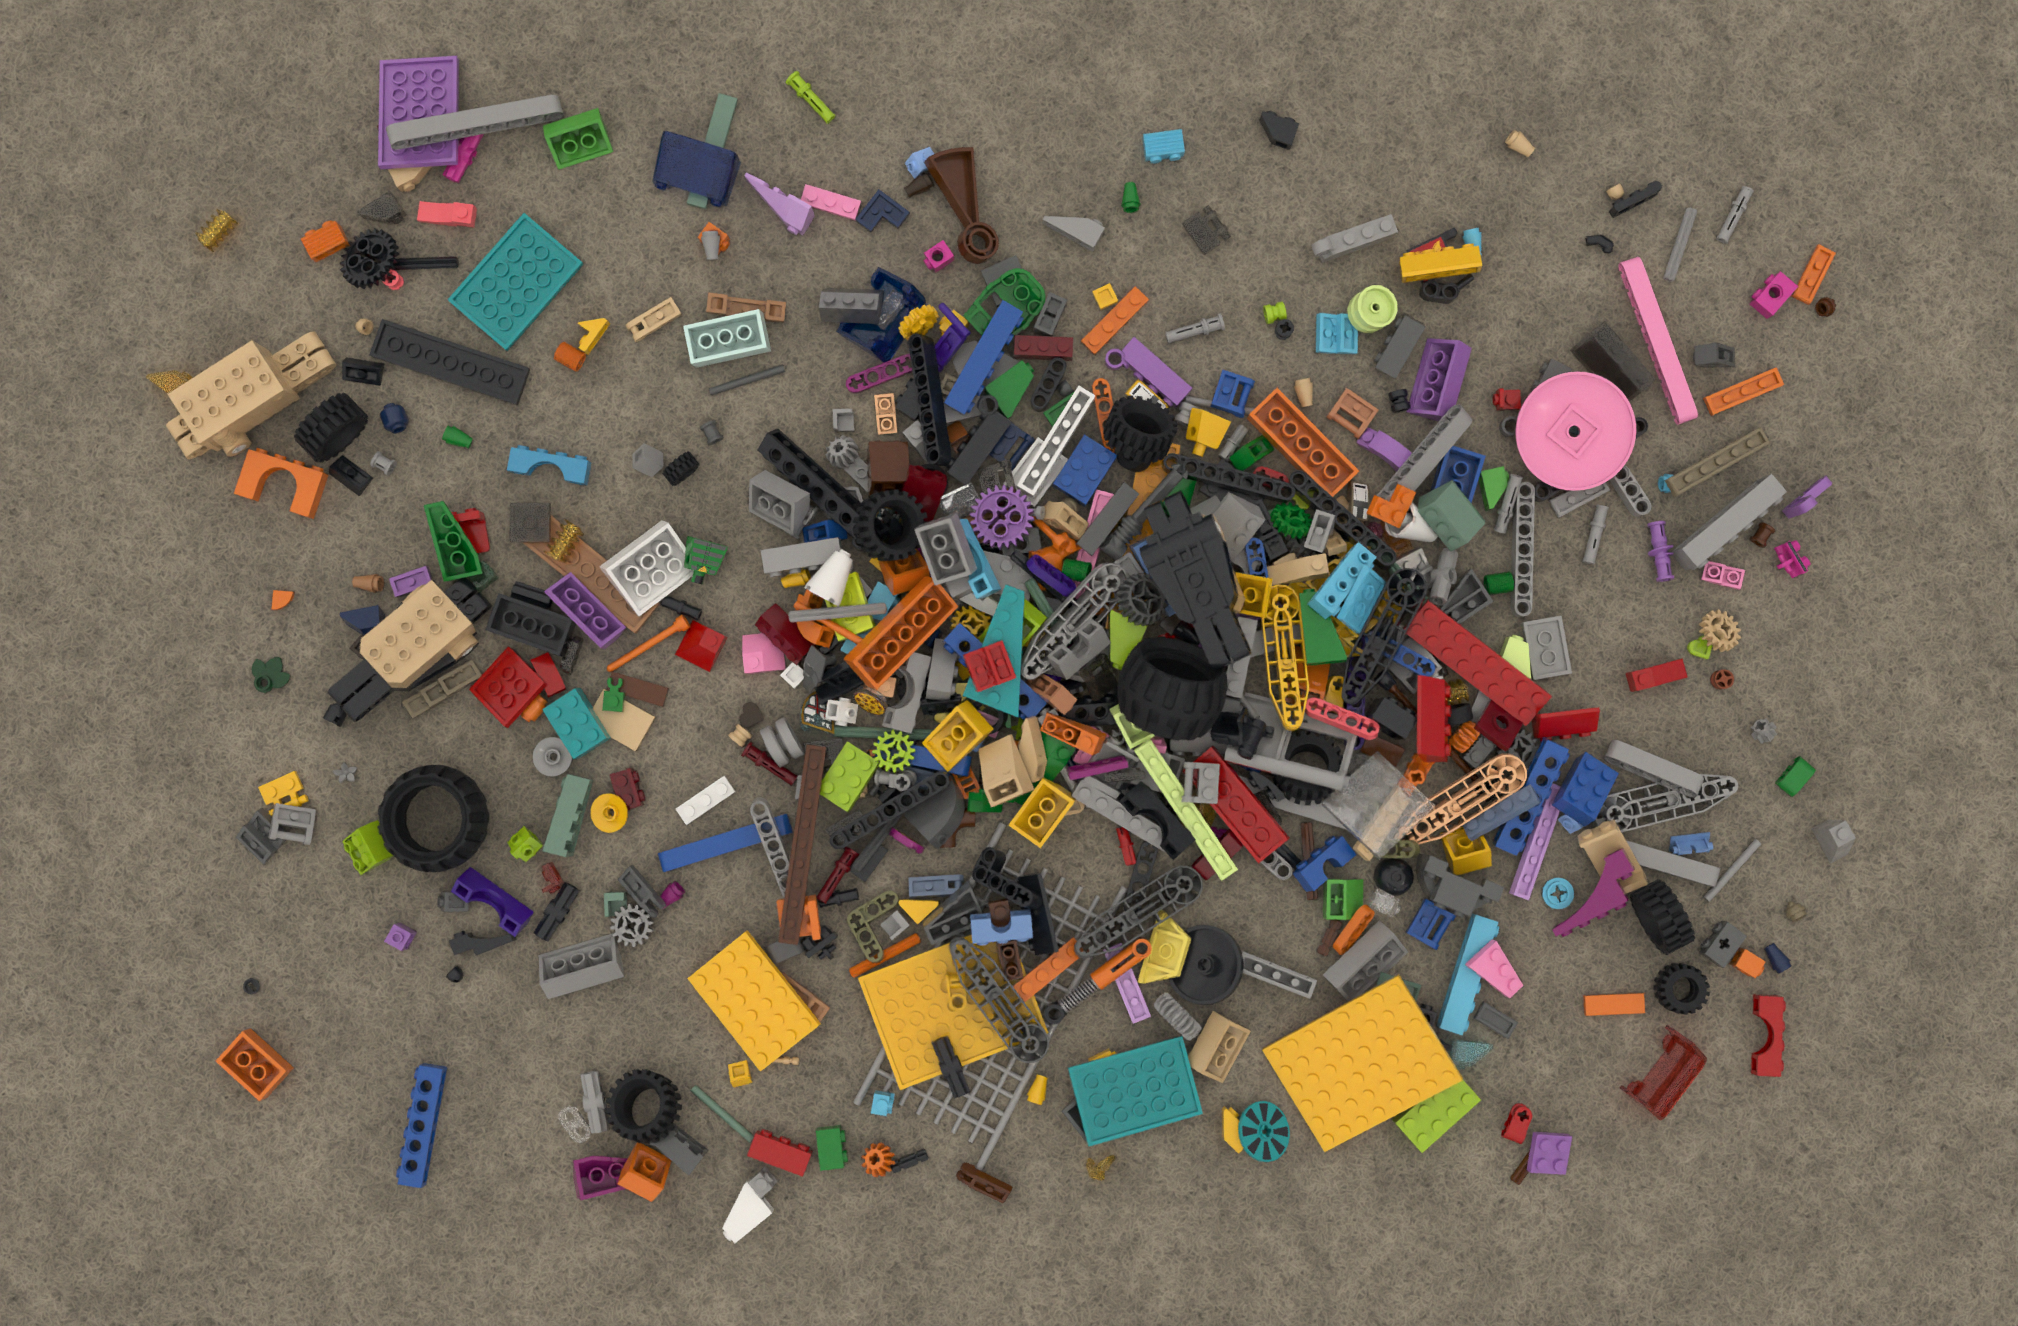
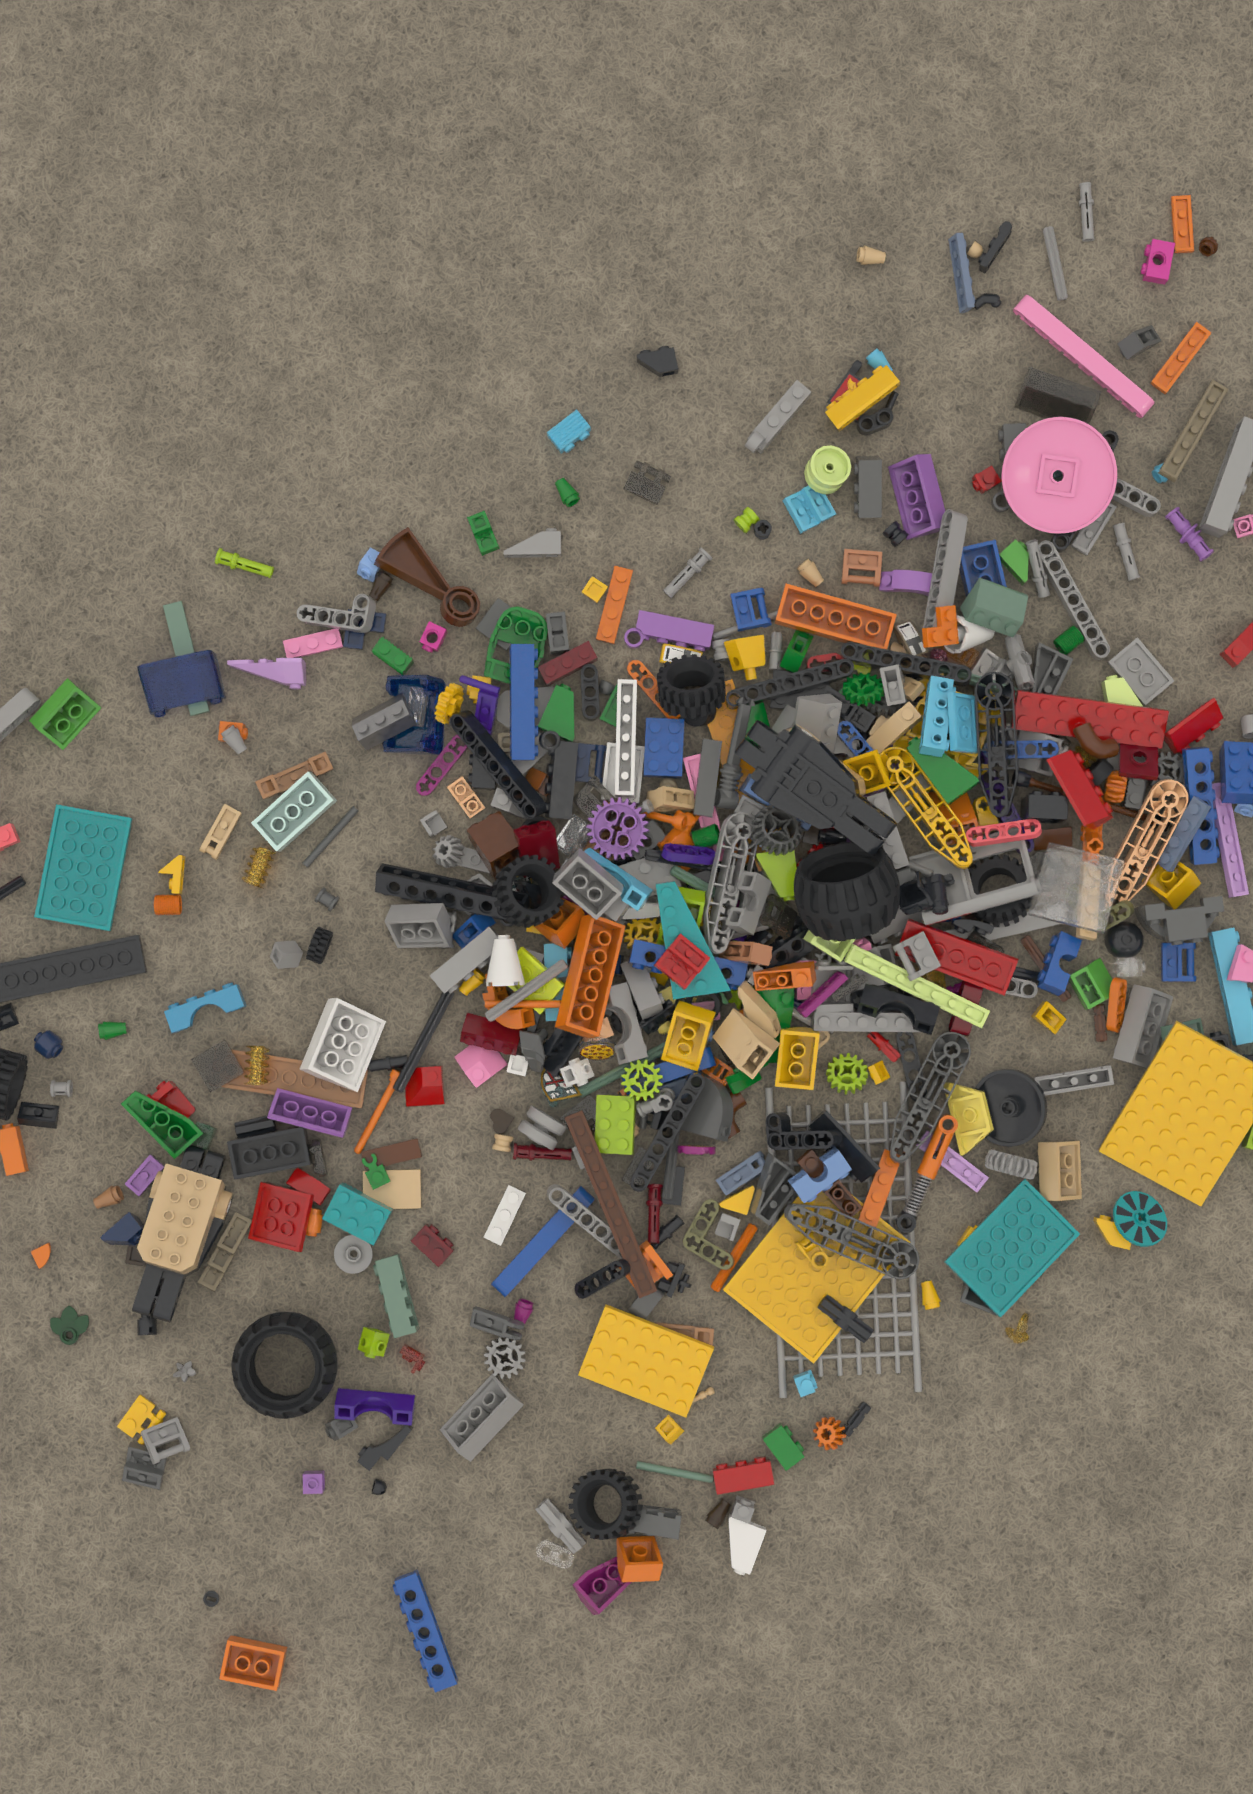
camera: 25 degrees left, 0 degrees up
(366, 848) = (240, 1423): lime slope -> none
(556, 911) = (433, 1383): black piece -> none
(601, 813) = (426, 1281): yellow dish -> none
(613, 902) = (478, 1346): sand green panel -> none
(668, 369) = (258, 866): none -> clear yellow piece
(703, 558) = (383, 1010): green torso -> none
(722, 605) = (422, 1041): none -> black axle
(737, 1174) = (718, 1514): none -> dark brown cone
(756, 908) = (602, 1279): none -> black beam
(863, 188) = (335, 615): none -> light grey beam
(893, 252) = (392, 656): none -> green brick
(984, 1183) = (929, 1400): reddish brown hinge -> none
(1036, 191) = (483, 533): none -> green slope
(1077, 853) = (849, 1080): none -> lime gear
(1107, 866) = (878, 1072): none -> yellow plate
(1287, 905) = (1049, 1017): none -> yellow slope
(1467, 686) = (1093, 744): none -> reddish brown cylinder
(1591, 205) = (961, 272): none -> sand blue plate

